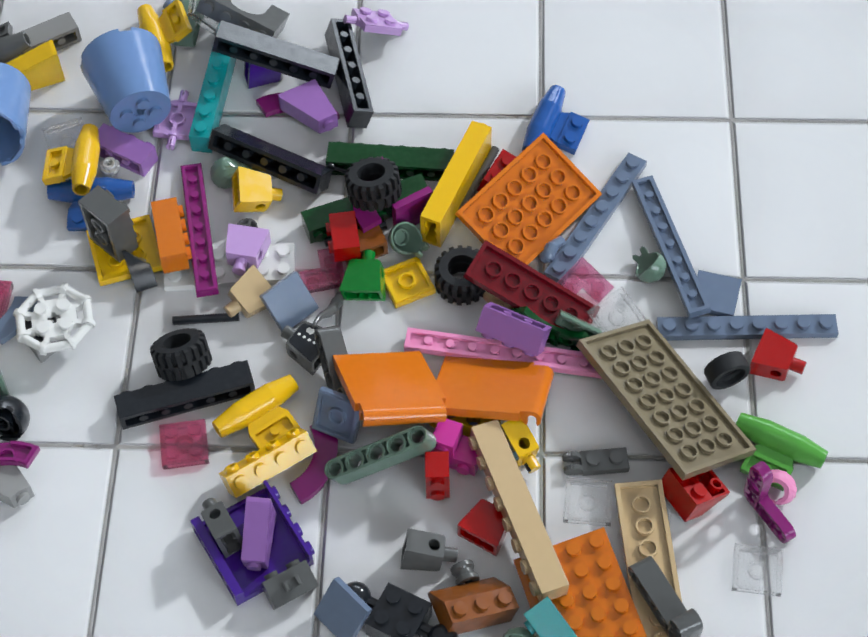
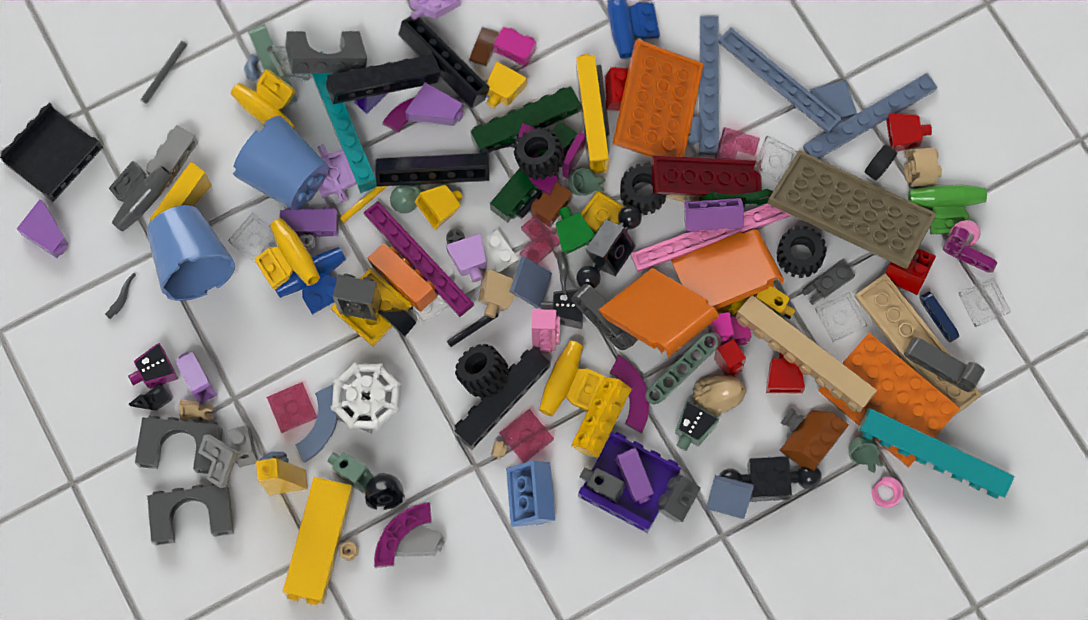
camera: 30 degrees left, 15 degrees up
(147, 440) = (499, 449): none -> tan plate
(147, 499) = (530, 494): none -> medium blue slope
(186, 158) = (361, 203): none -> yellow bar
(263, 343) = (545, 330): none -> bright pink brick
(336, 416) = (630, 354): sand blue tile -> none
(344, 236) = (540, 207): red brick -> none
(357, 523) = (694, 426): none -> torso
(388, 308) = (610, 247): none -> black brick
(391, 122) = (504, 85): none -> yellow torso
(395, 82) = (483, 47): none -> reddish brown slope
(404, 507) = (718, 393): none -> tan piece
(425, 551) = (756, 420): dark grey torso -> none
(427, 94) = (515, 46): none -> dark pink brick
(575, 324) = (755, 184): sand green slope -> none
(584, 429) = (801, 237): none -> black tyre
(650, 266) = (774, 105): sand green piece -> none
(695, 556) = (939, 317): none -> dark blue beam
(770, 396) = (922, 167): none -> tan brick

